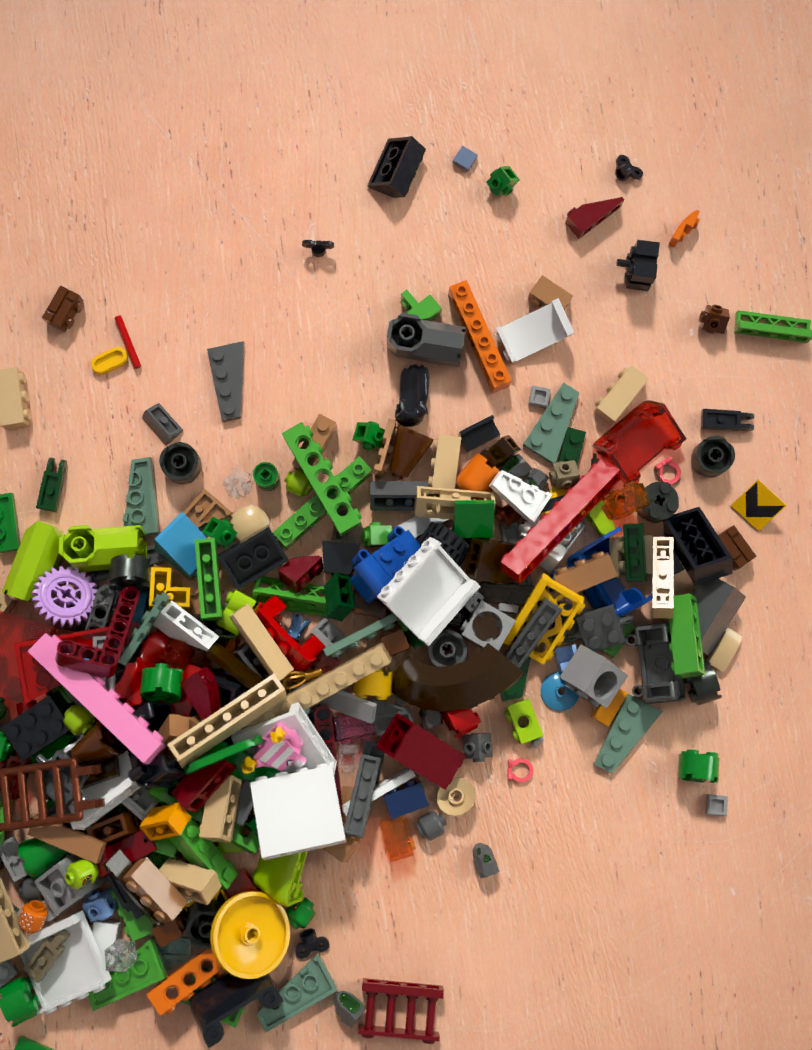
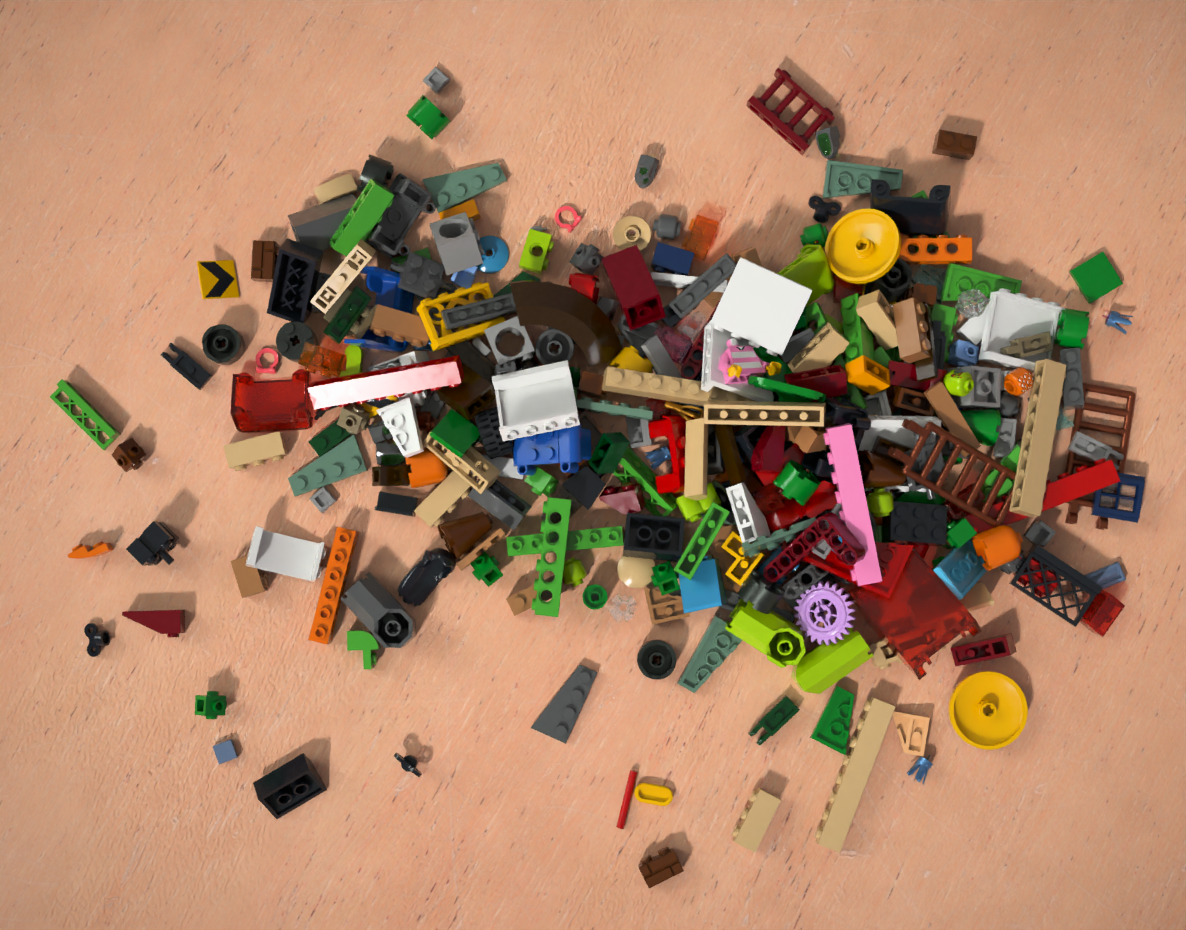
camera: 135 degrees left, 5 degrees up
(162, 423) = (648, 707): dark grey slope -> none

